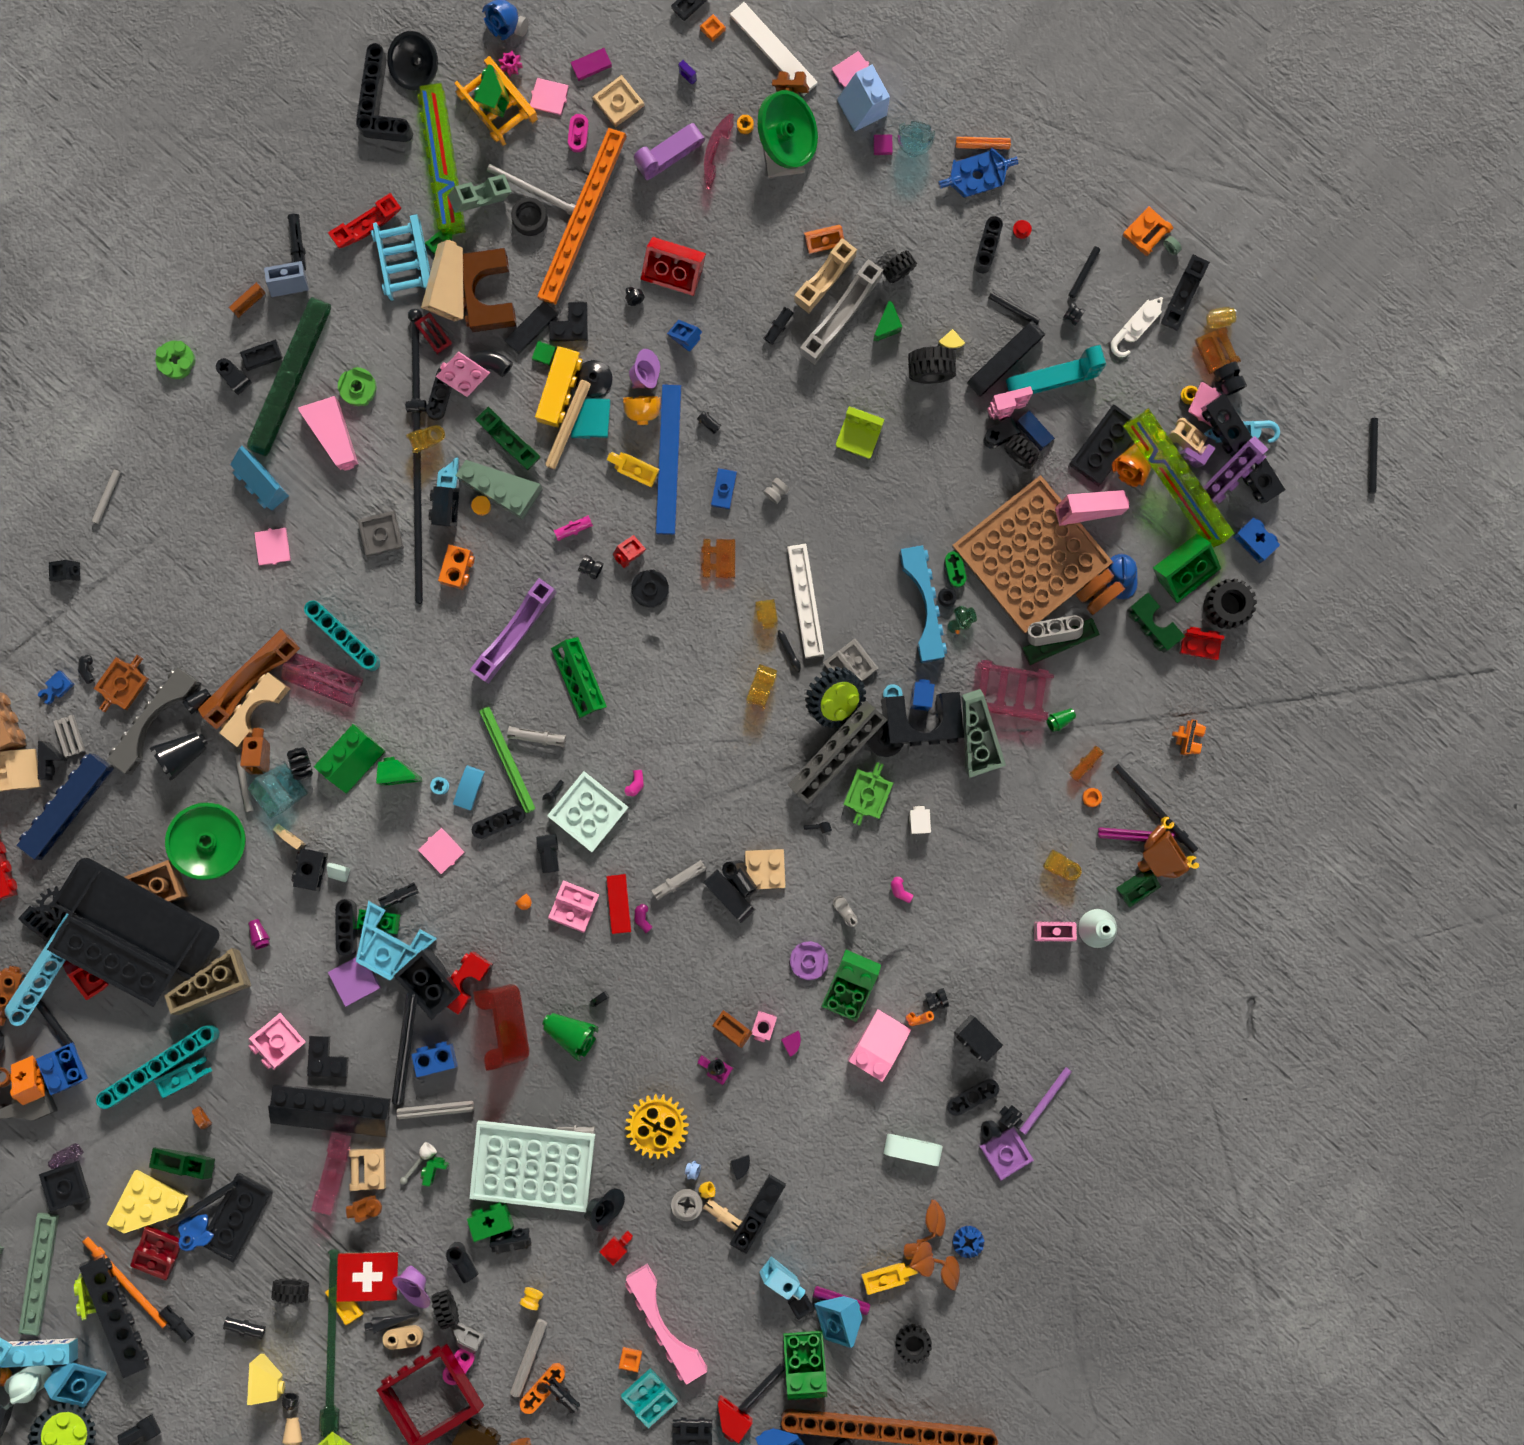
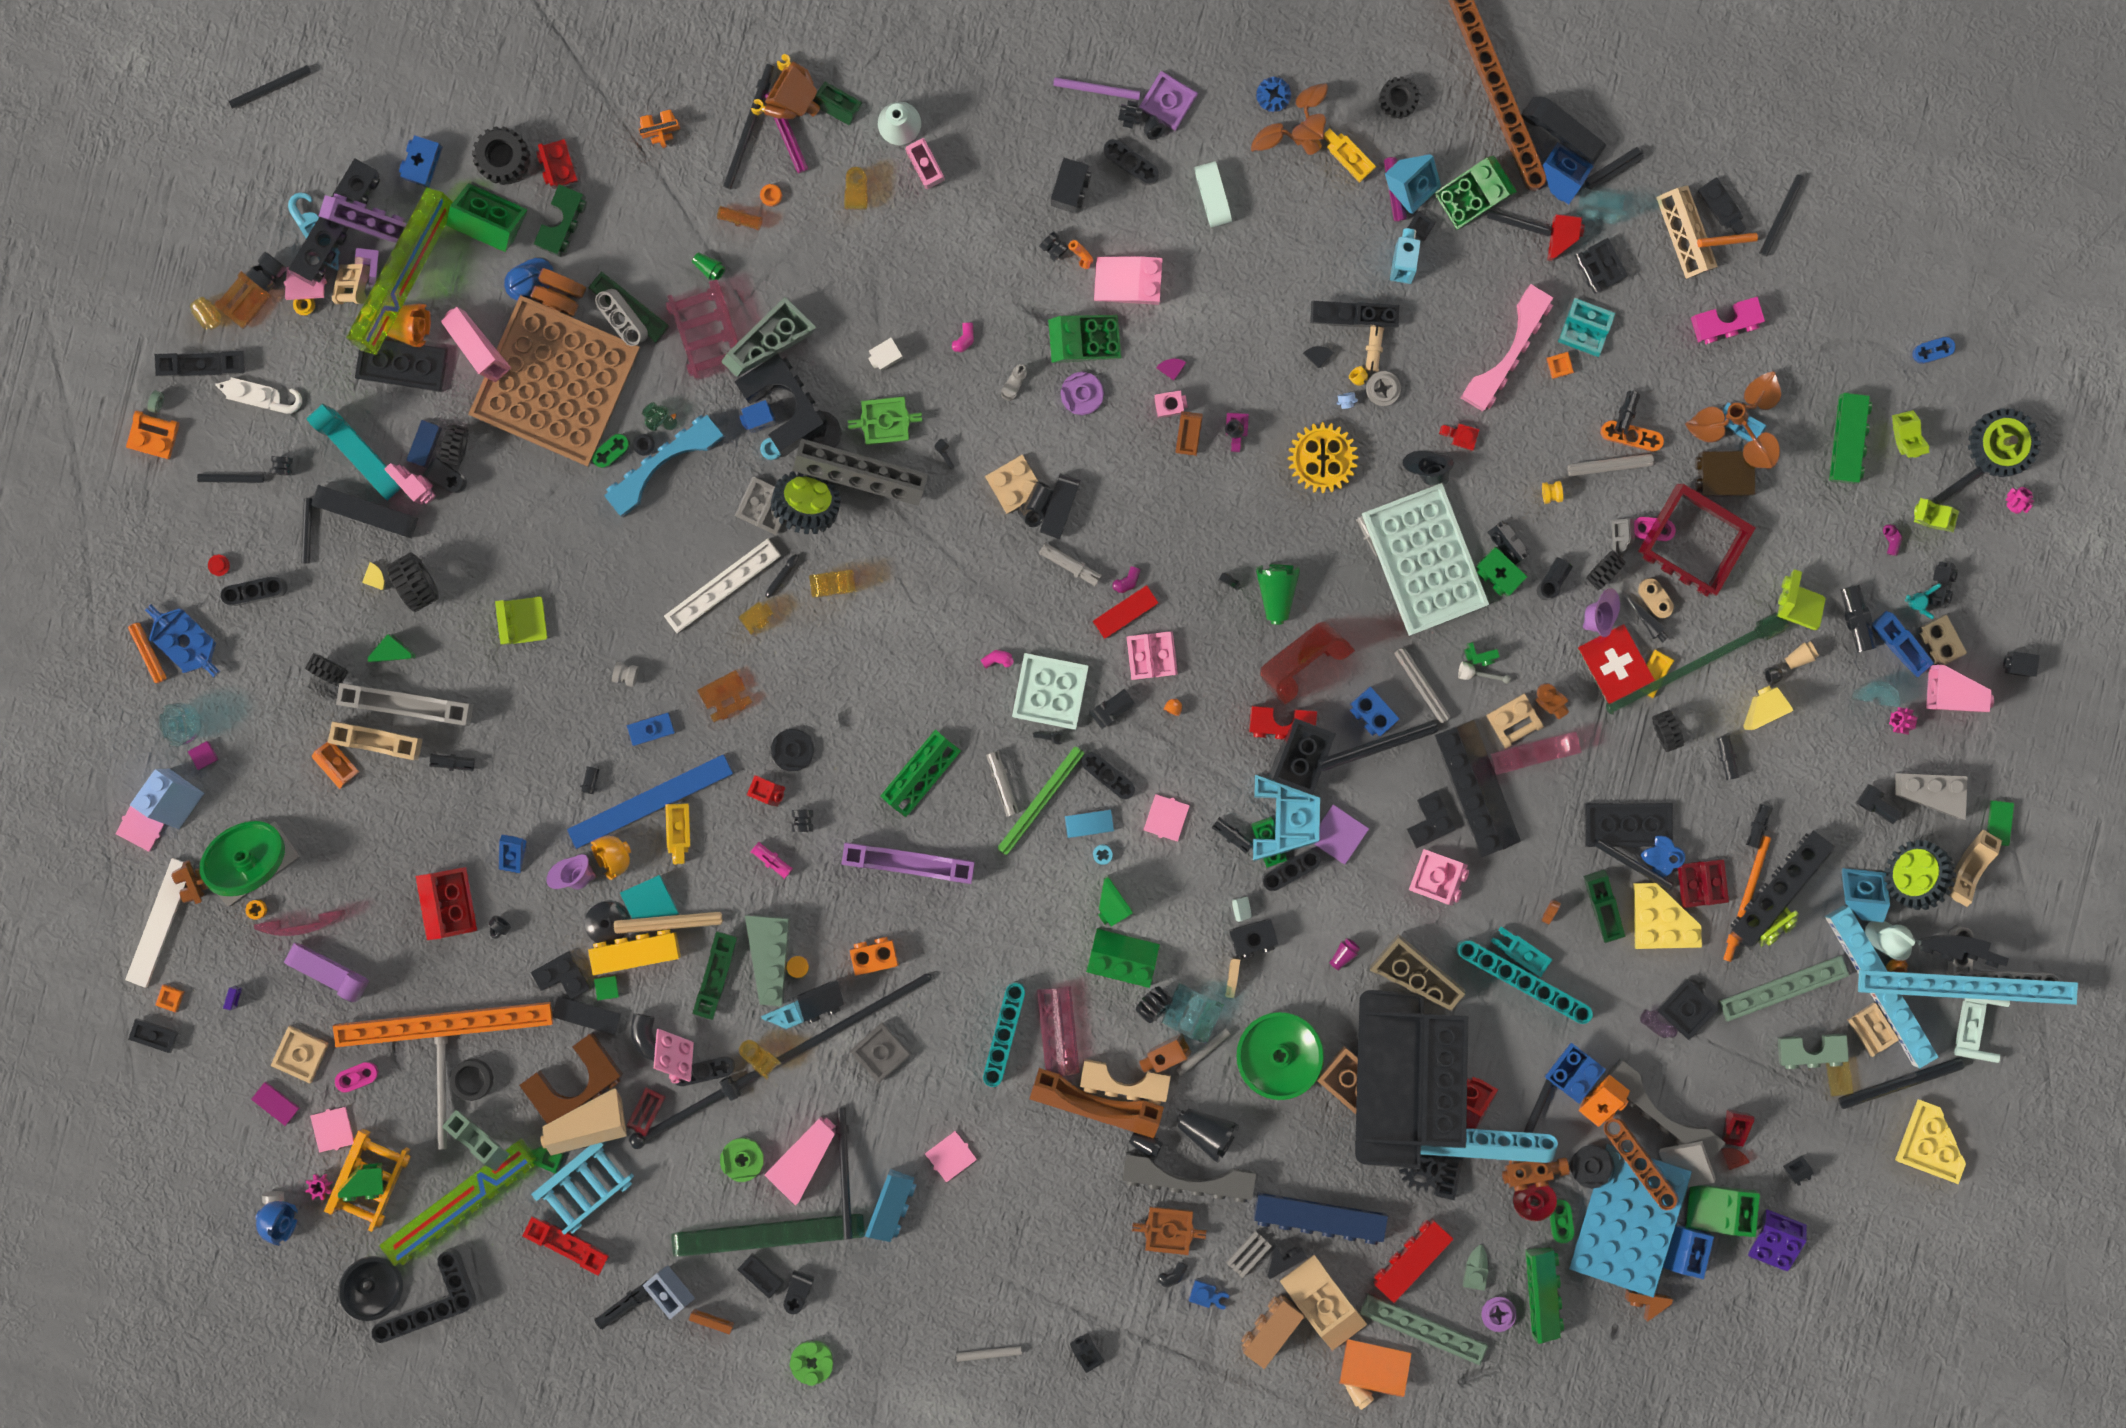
camera: 120 degrees left, 5 degrees up
(336, 474) = (842, 1130): none -> black bar

